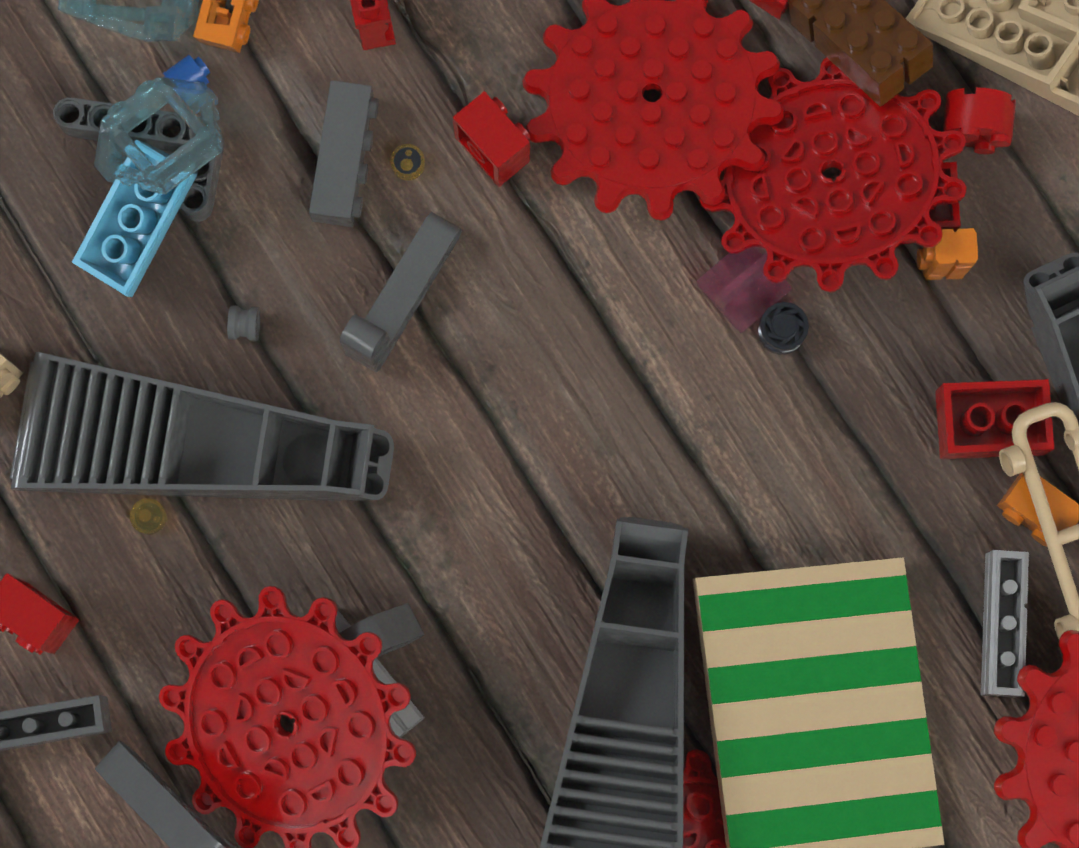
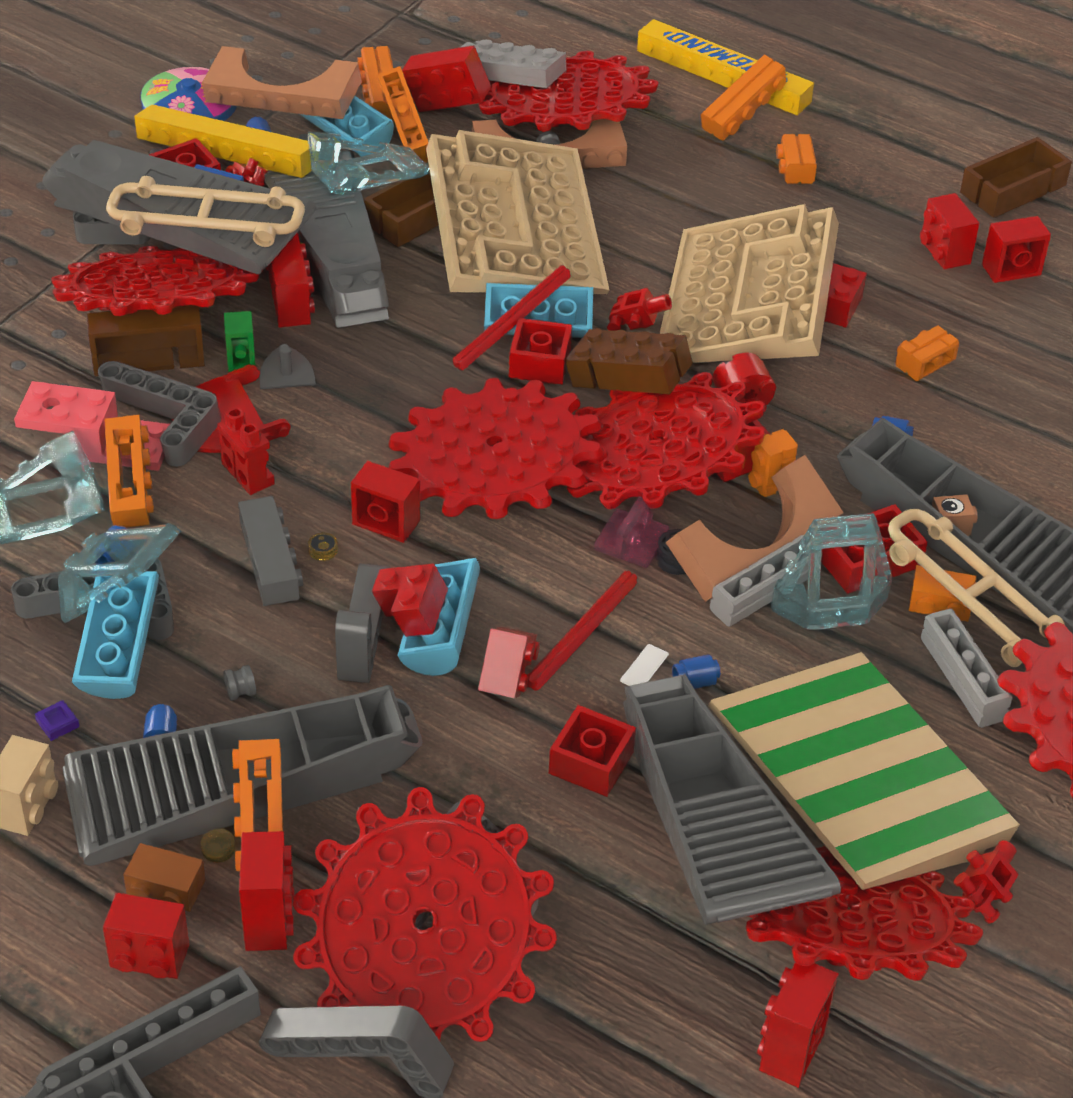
camera: 25 degrees left, 35 degrees down
(50, 291) = (57, 720): none -> dark purple tile
(78, 541) = (164, 876): none -> dark orange brick
(143, 350) = (160, 720): none -> blue brick
(153, 620) = (266, 890): none -> red brick
(203, 470) = (243, 792): none -> orange brick
(459, 302) = (411, 596): none -> red brick
(482, 320) = (440, 651): none -> medium azure brick
(525, 412) = (506, 660): none -> brick
(556, 567) = (592, 750): none -> red brick
(629, 392) = (581, 630): none -> red axle
(673, 465) = (644, 666): none -> white sticker
(718, 505) = (700, 670): none -> blue brick
(853, 416) = (754, 585): none -> light grey brick
(880, 469) = (805, 608): none -> clear light blue windscreen
(950, 338) = (712, 561): none -> nougat arch

